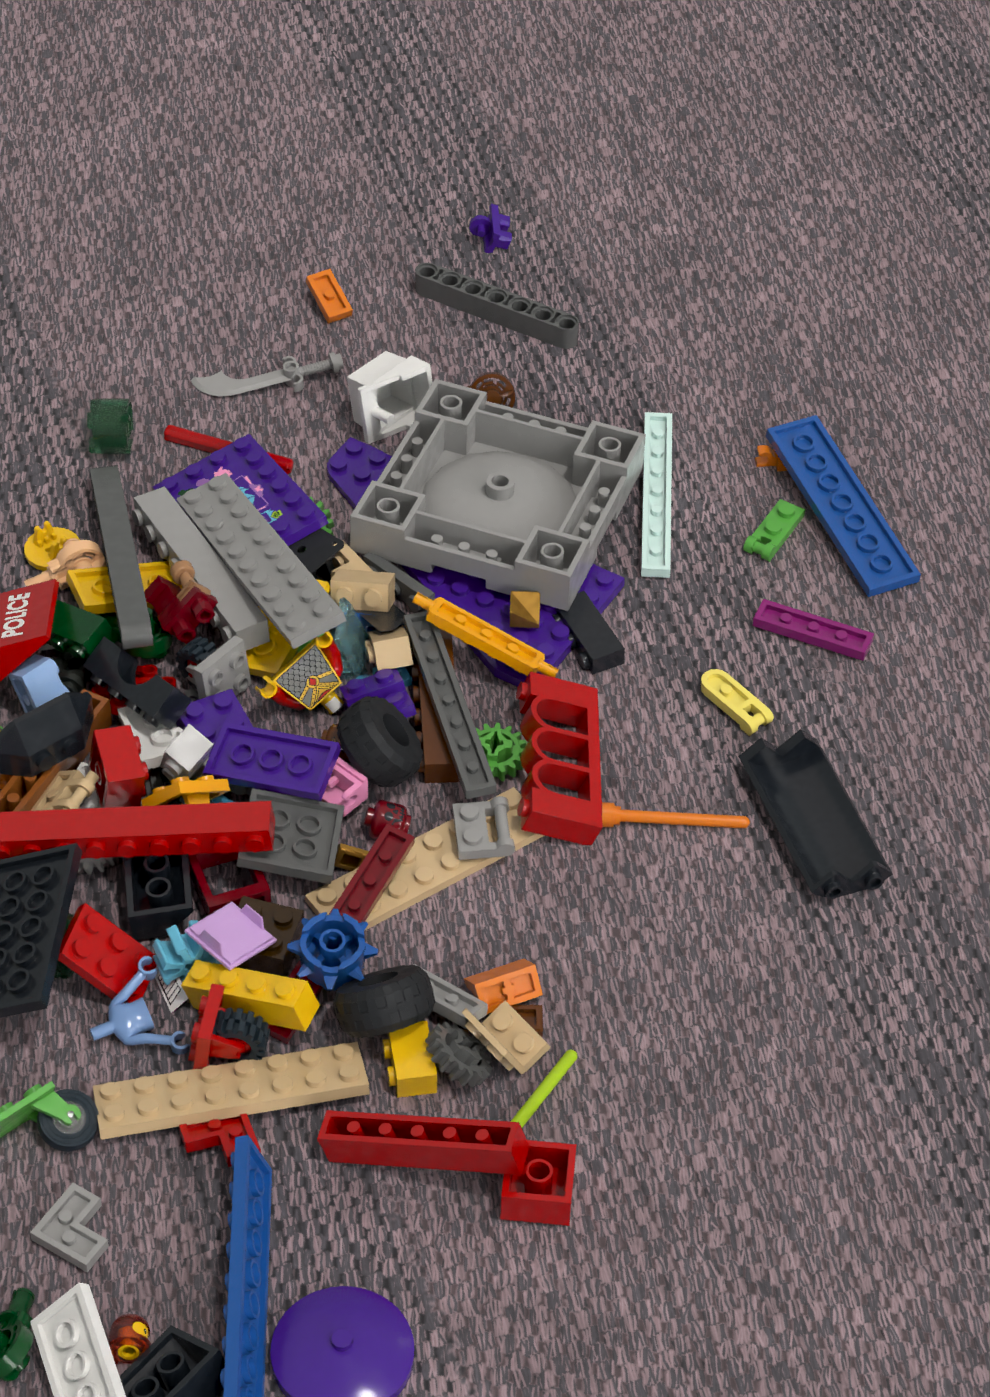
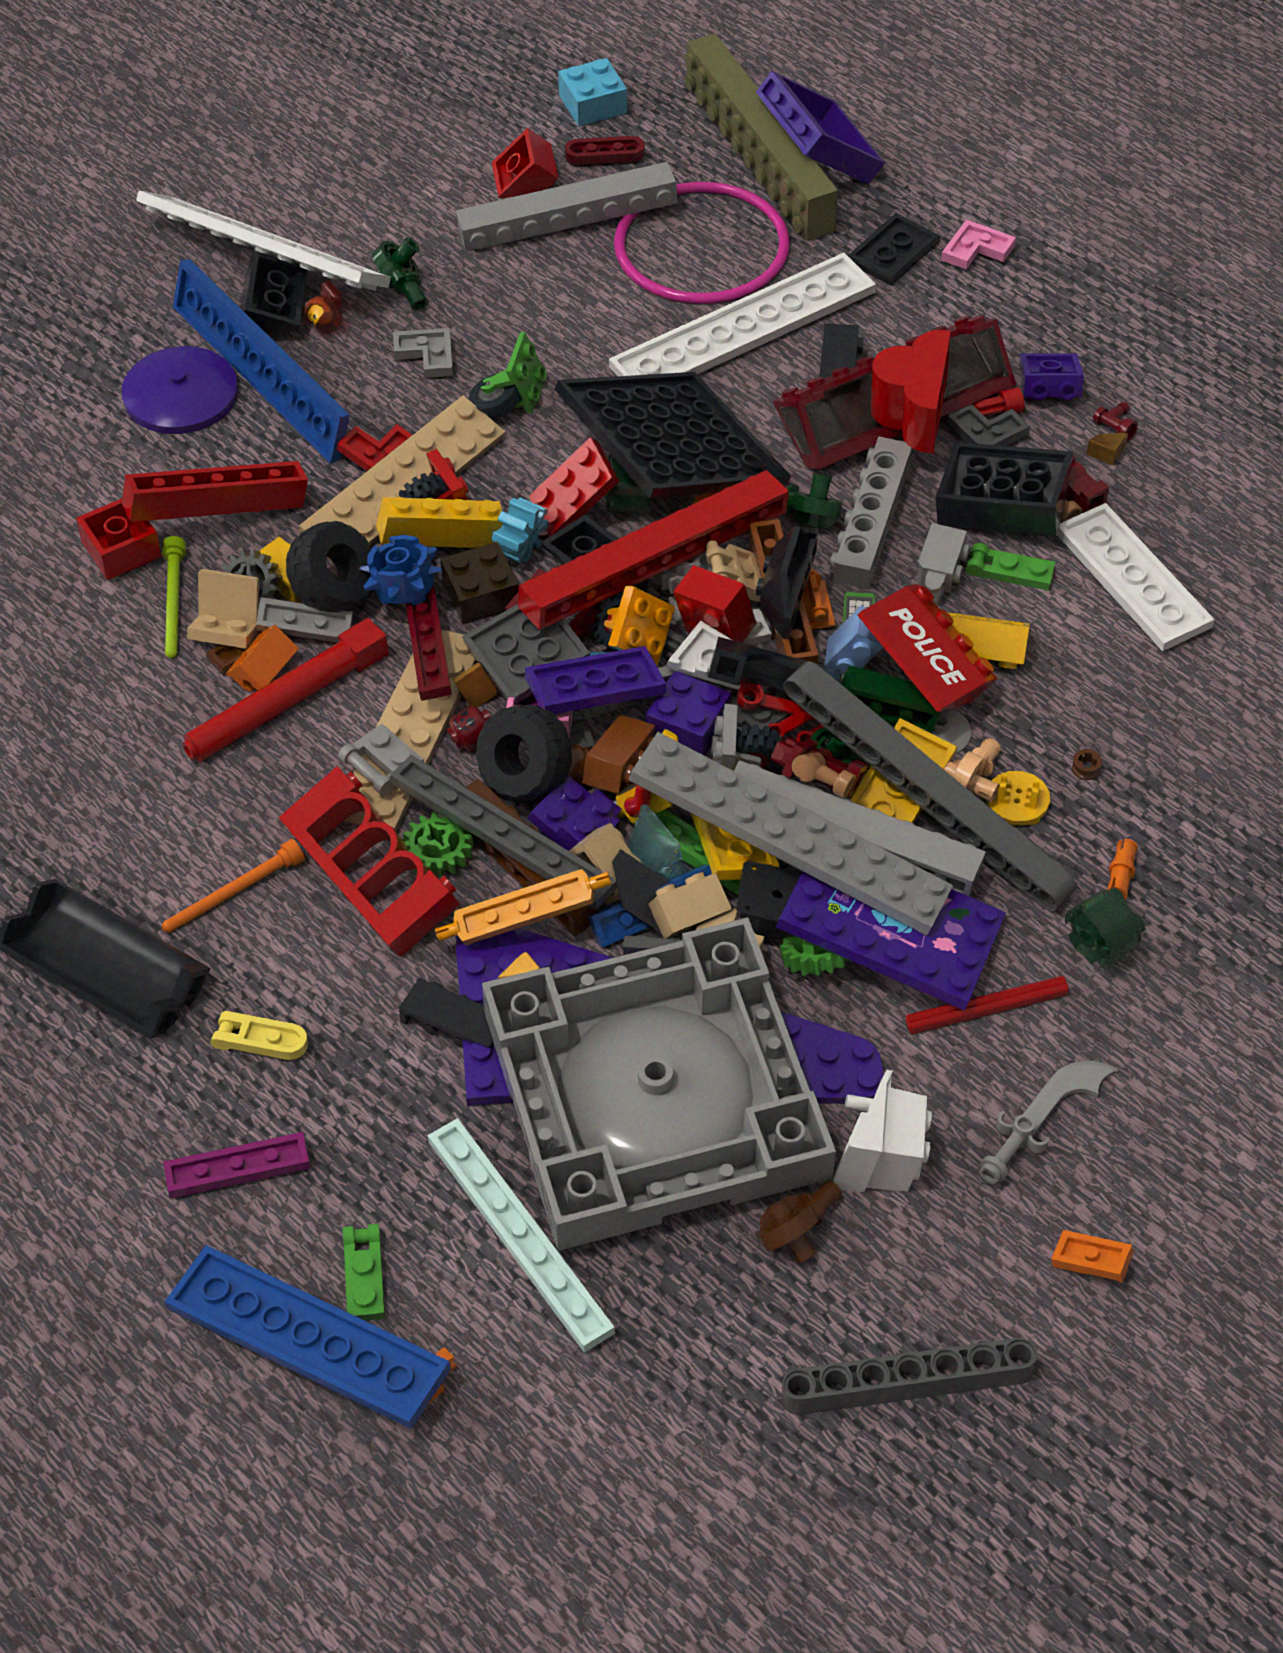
camera: 145 degrees right, 5 degrees up
(46, 467) = (1122, 866): none -> orange pin
(132, 1019) = (520, 481): medium blue piece -> none
(186, 754) = (656, 621): brick -> none
(232, 934) = (488, 533): lavender piece -> none
(309, 710) = (617, 753): none -> dark orange brick
(421, 947) = (356, 650): none -> red brick
(492, 229) = (1036, 1517): dark purple hips -> none

